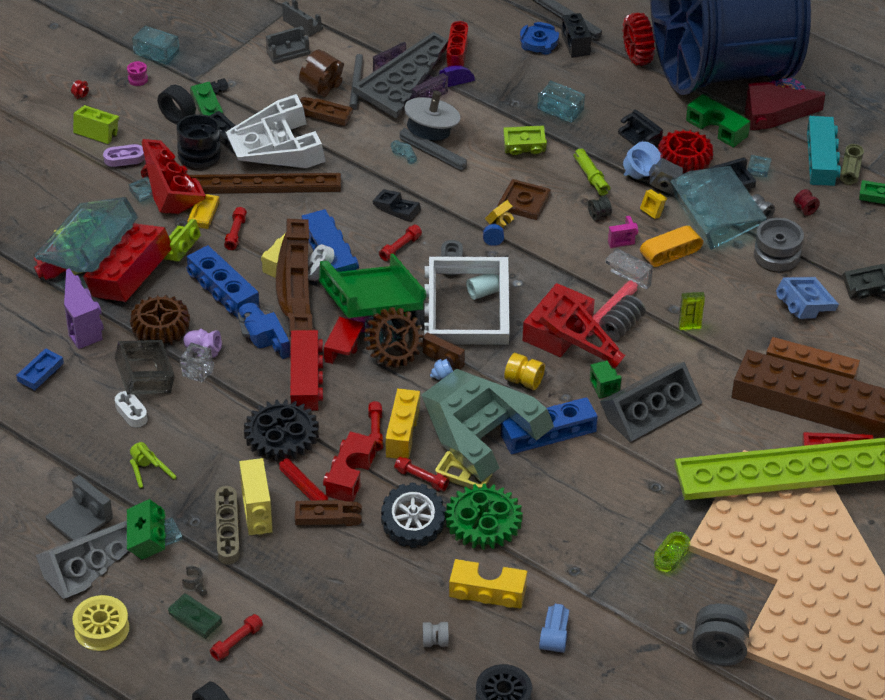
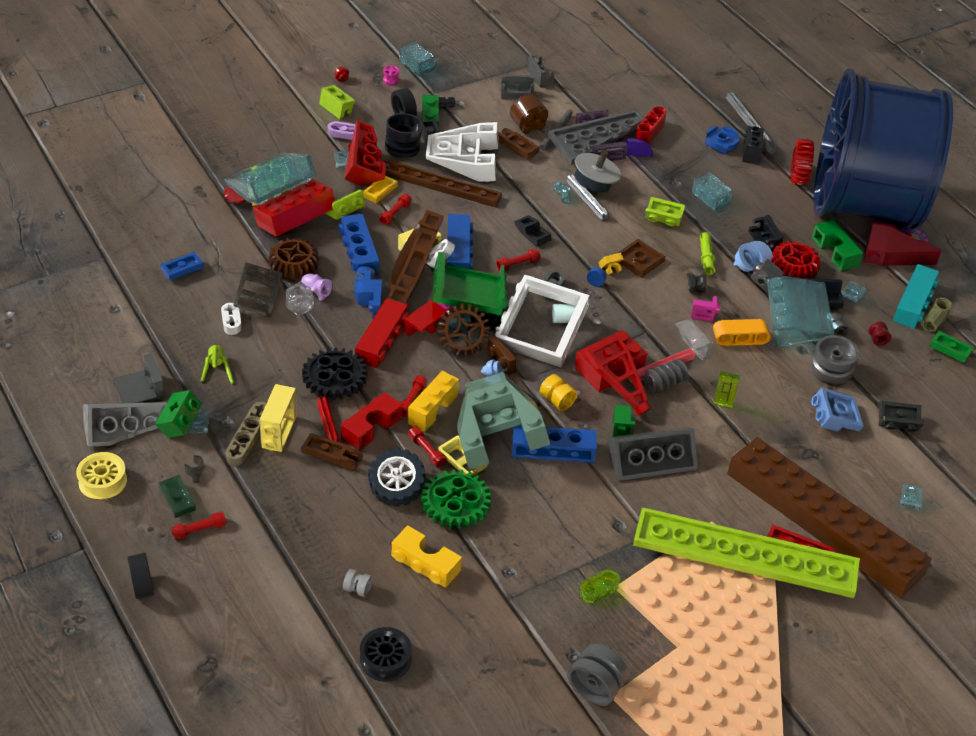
camera: 20 degrees right, 0 degrees up
(81, 313) = (234, 232): medium lavender slope -> none
(554, 633) = (457, 620): medium blue piece -> none
(653, 203) = (745, 293): yellow tile -> none
(814, 358) = (814, 465): dark orange brick -> none

